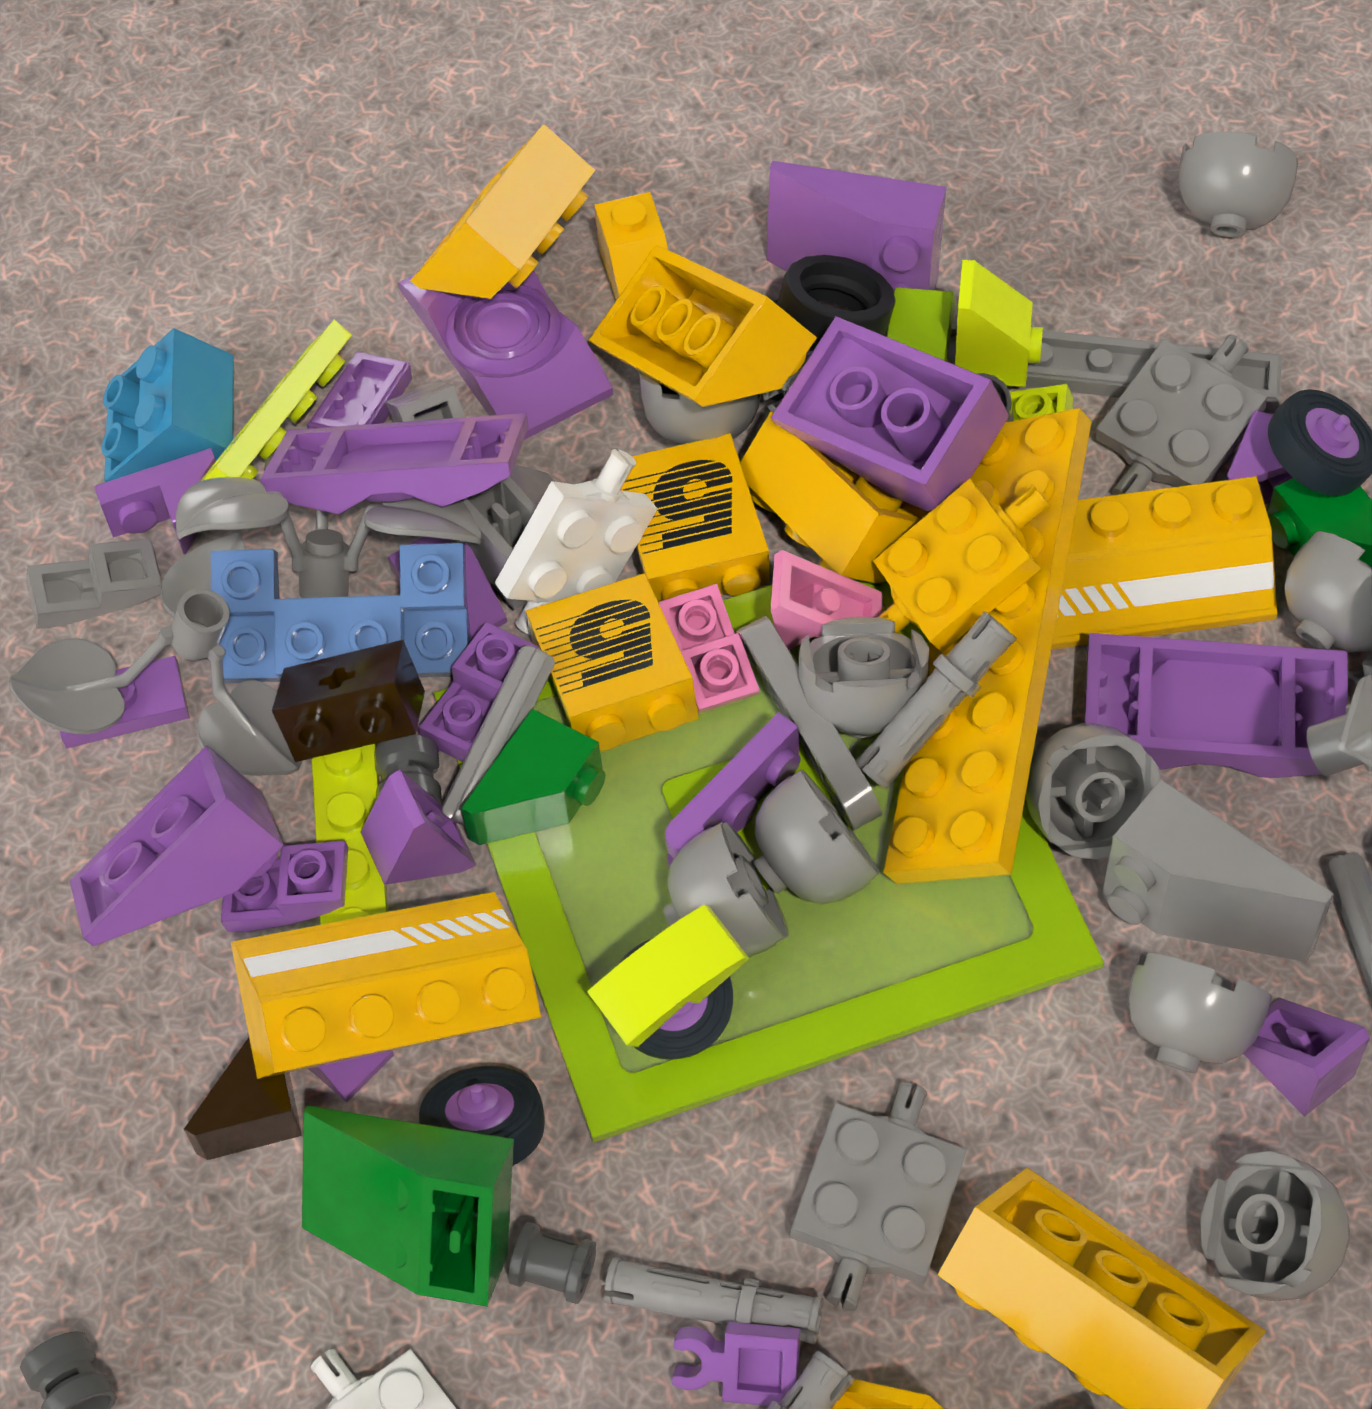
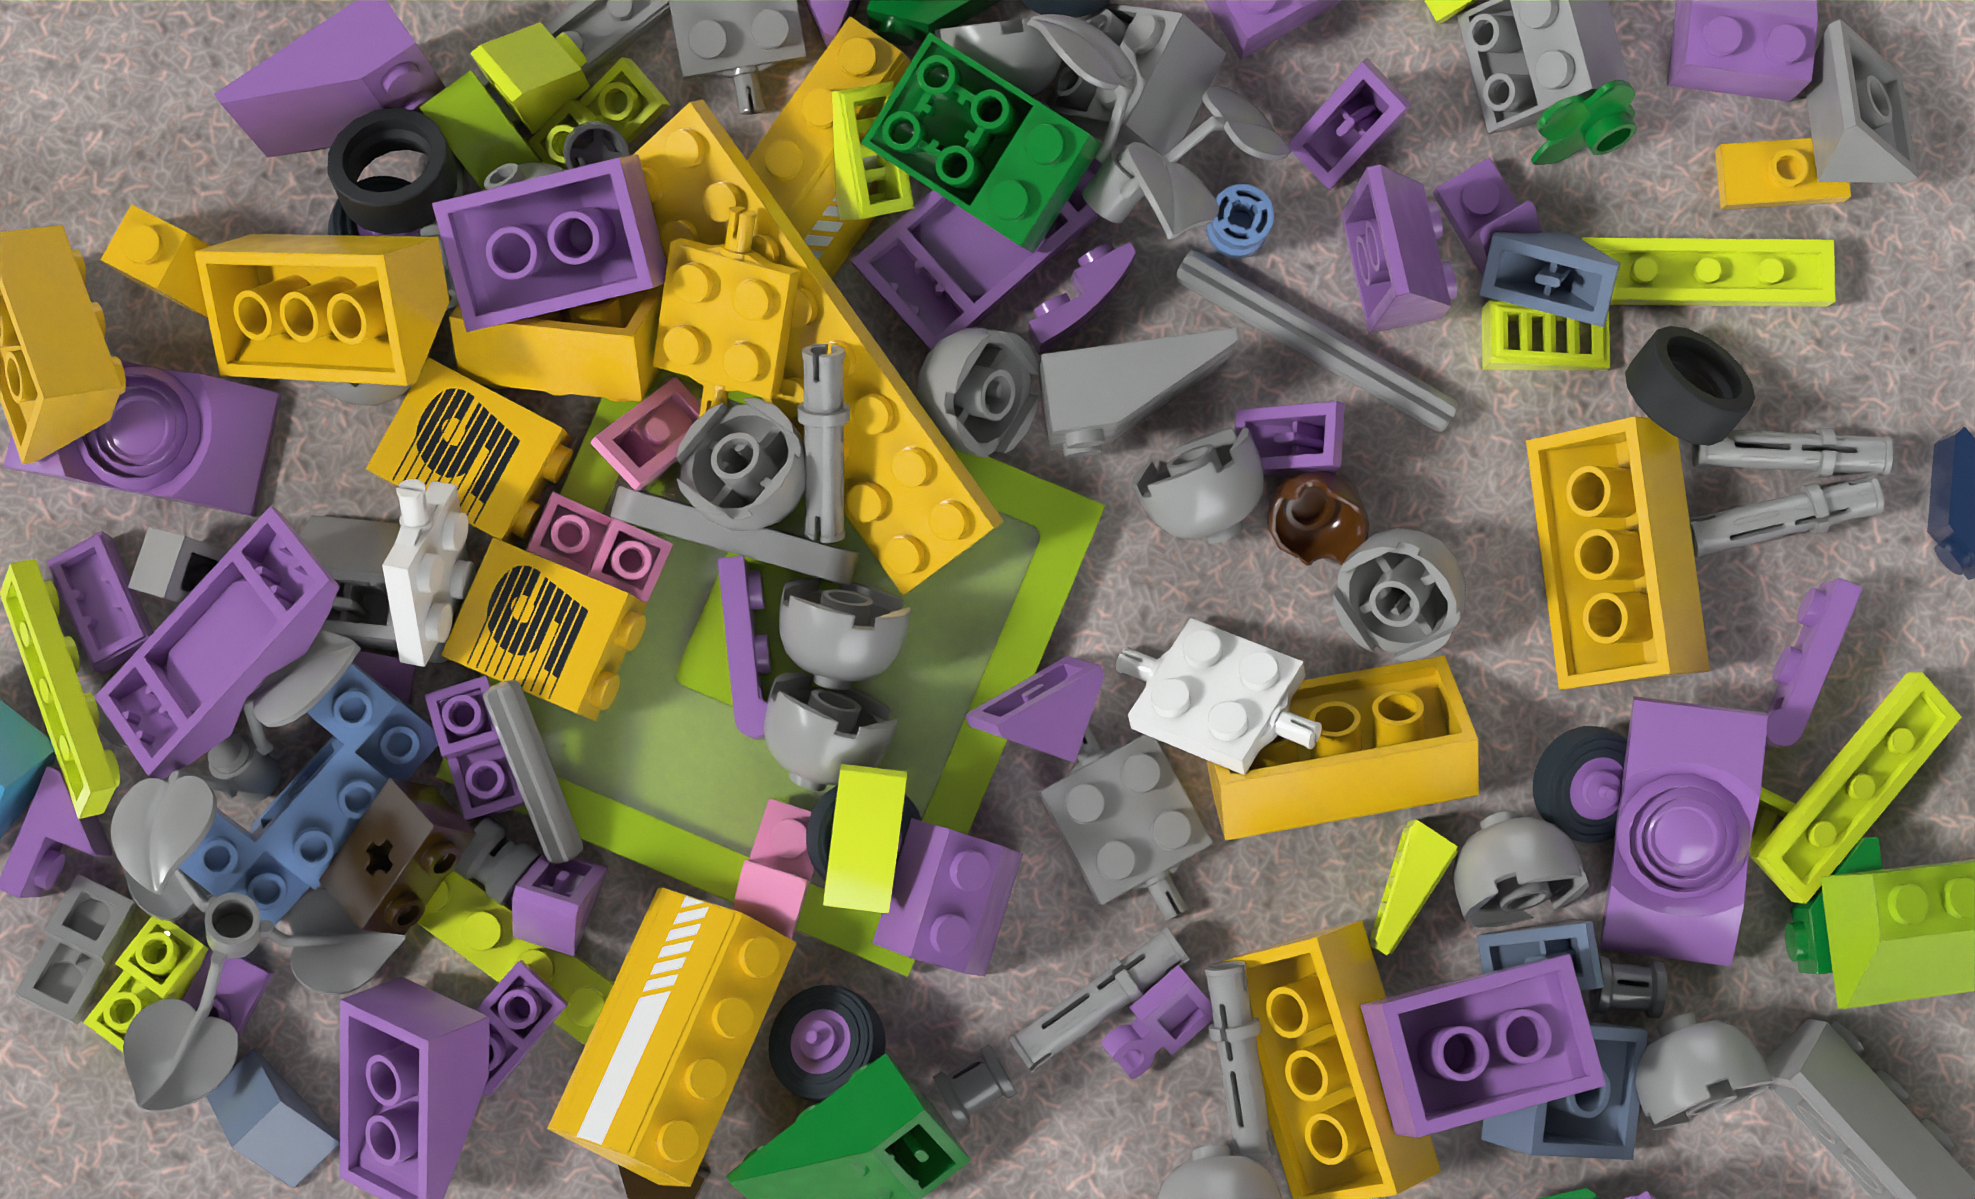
camera: 55 degrees left, 25 degrees up
(72, 801) = (271, 1121): none -> sand blue slope
(124, 634) = (156, 968): none -> neon yellow slope
(535, 782) = (597, 775): green slope -> none
(572, 962) = (778, 869): none -> bright pink slope
(687, 1106) = (948, 898): none -> medium lavender slope
(895, 1050) = (1046, 709): none -> medium lavender slope
(1045, 1162) = (1218, 696): none -> white plate
(1194, 584) = (850, 177): none -> neon yellow slope
(1263, 1110) = (1317, 517): none -> reddish brown hair
(1265, 810) = (1095, 284): none -> medium lavender slope
(1268, 626) = (981, 143): none -> green slope

